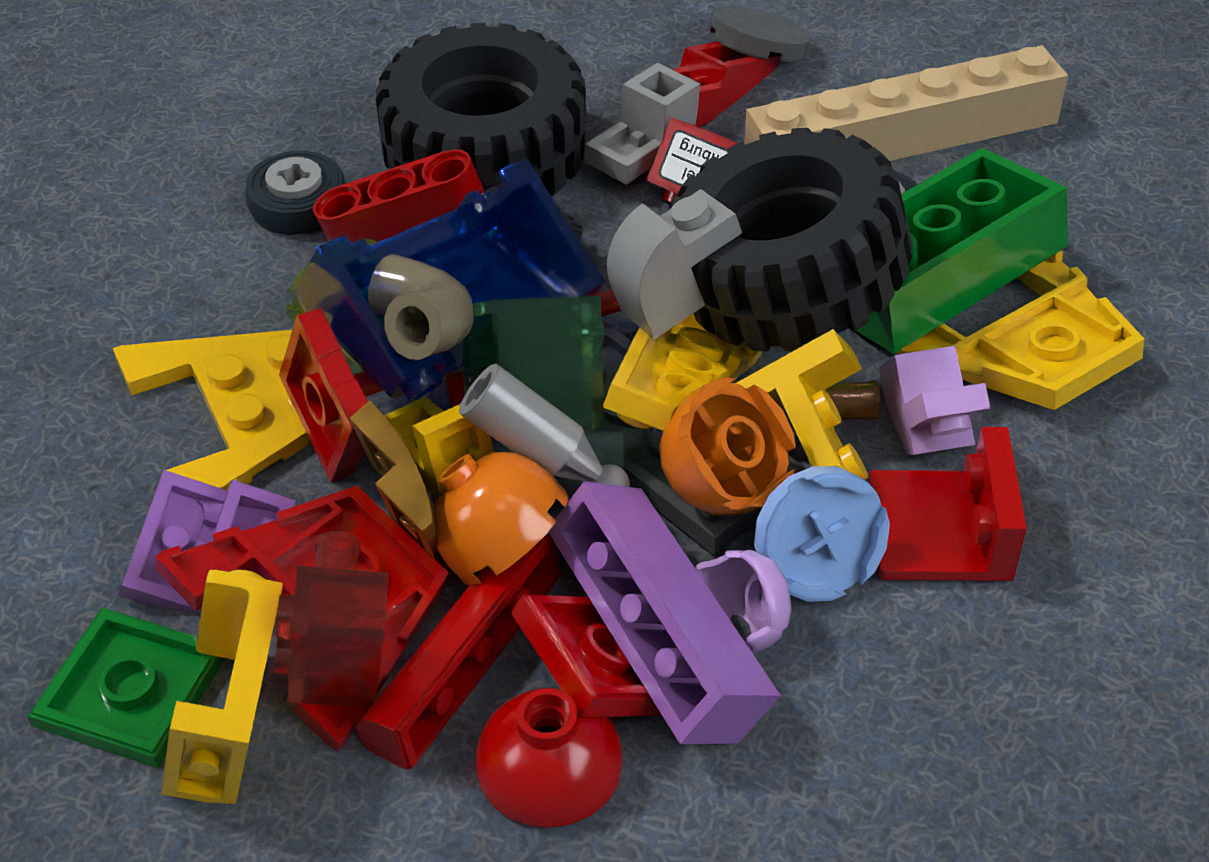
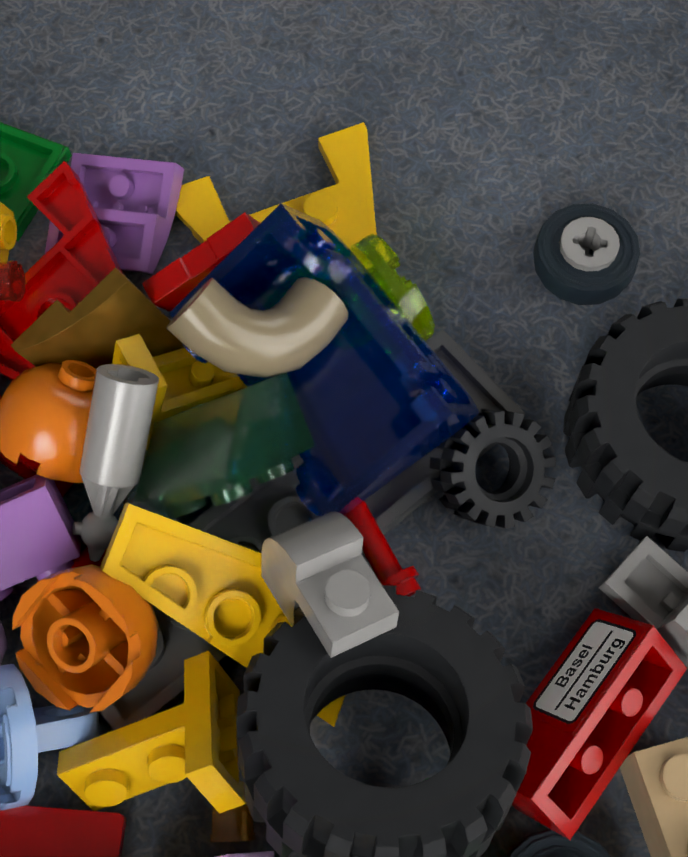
camera: 95 degrees right, 20 degrees up
(397, 197) = (535, 343): red beam -> none

